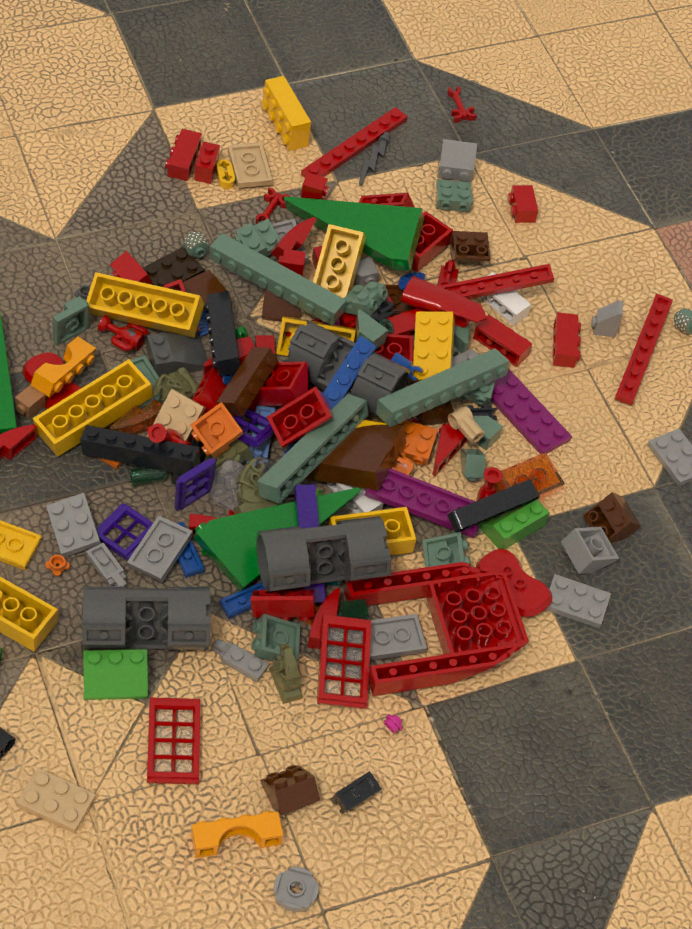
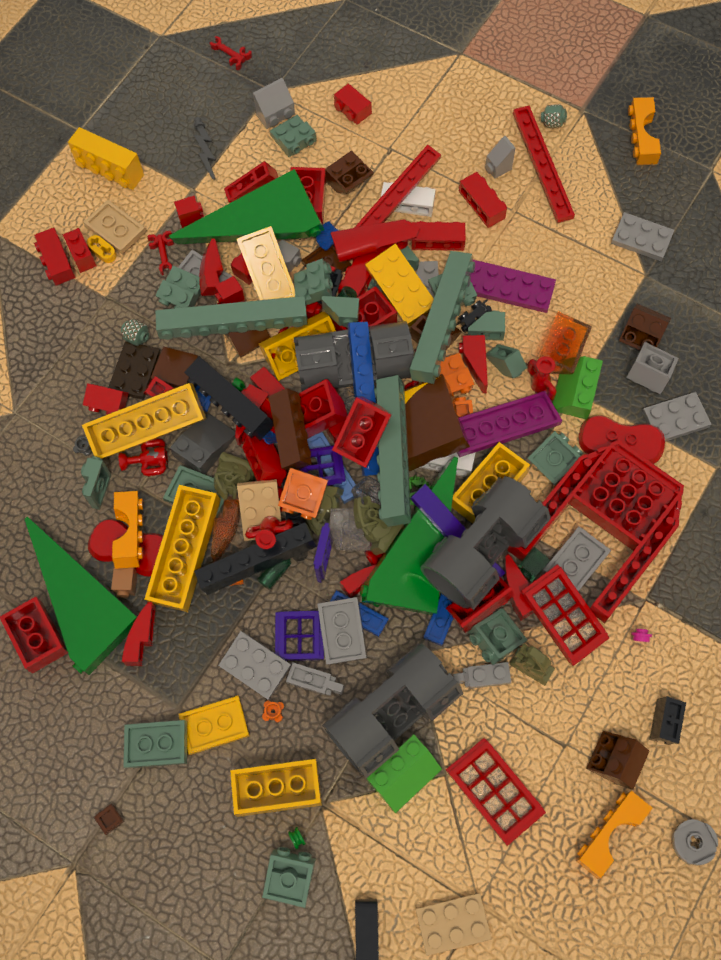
camera: 25 degrees left, 15 degrees up
(355, 144) = (180, 148): red plate -> none
(398, 358) = (391, 317): blue bar -> none
(448, 273) = (349, 211): red hinge -> none
(463, 420) = (475, 331): tan piece -> none
(493, 506) = (562, 389): black beam -> none

